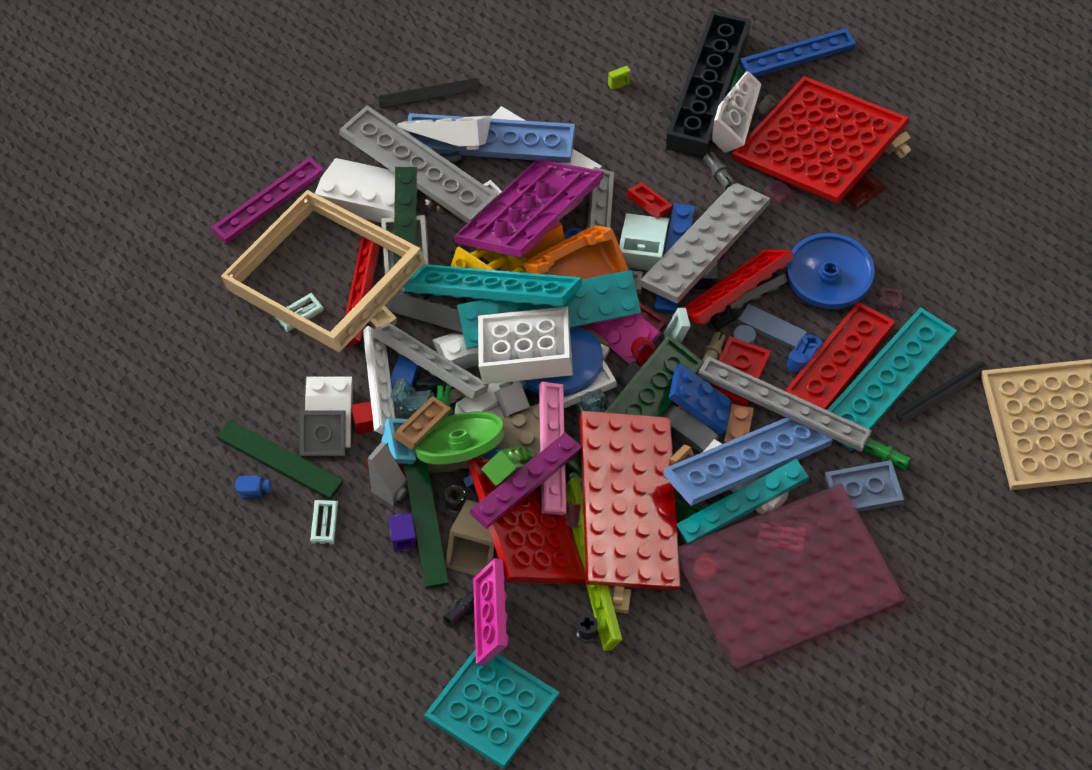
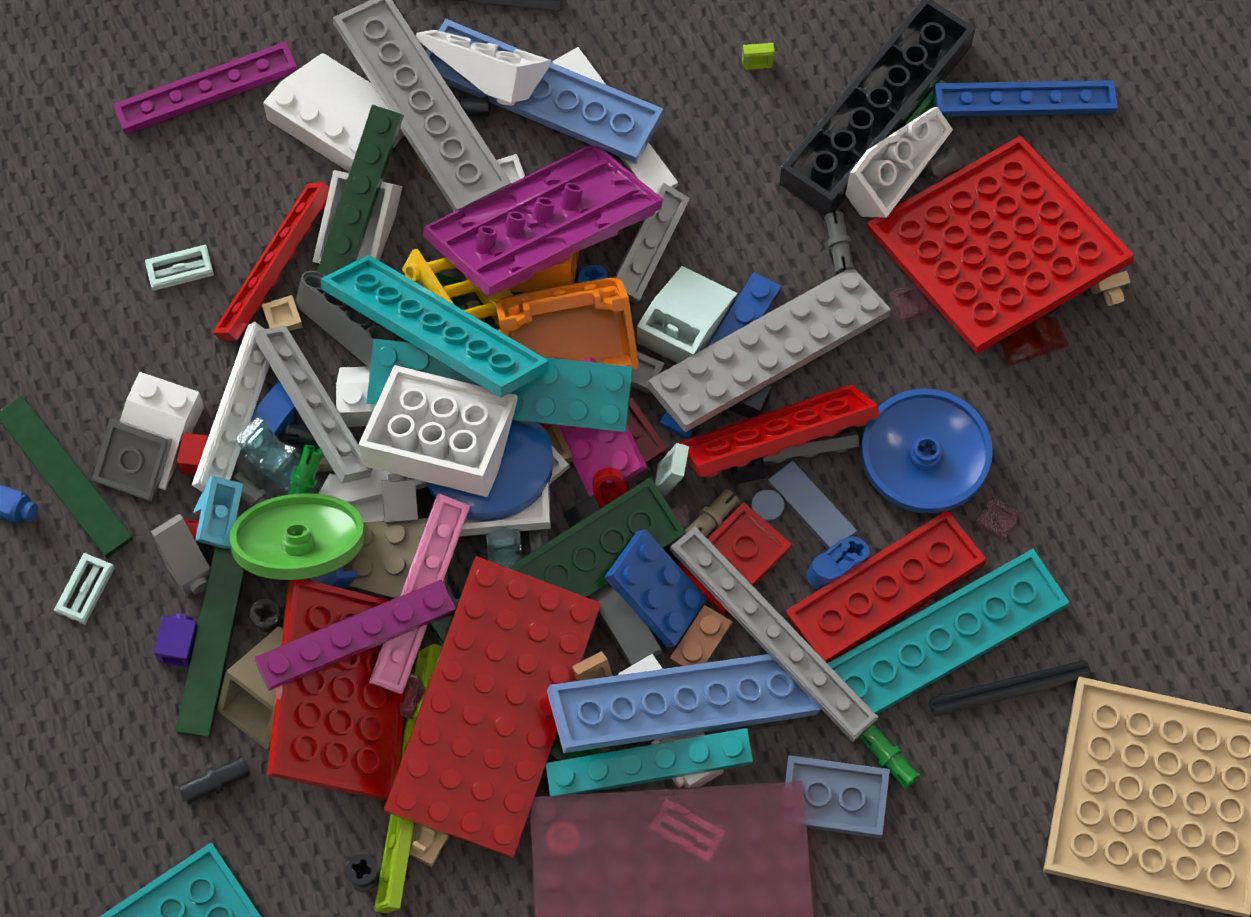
camera: 20 degrees right, 10 degrees up
(370, 304) = (268, 291): tan door -> none
(421, 423) = (257, 496): medium nougat plate -> none
(490, 612) = (230, 813): dark pink plate -> none
(506, 463) = (343, 601): bright green slope -> none
(649, 200) = (721, 257): red plate -> none

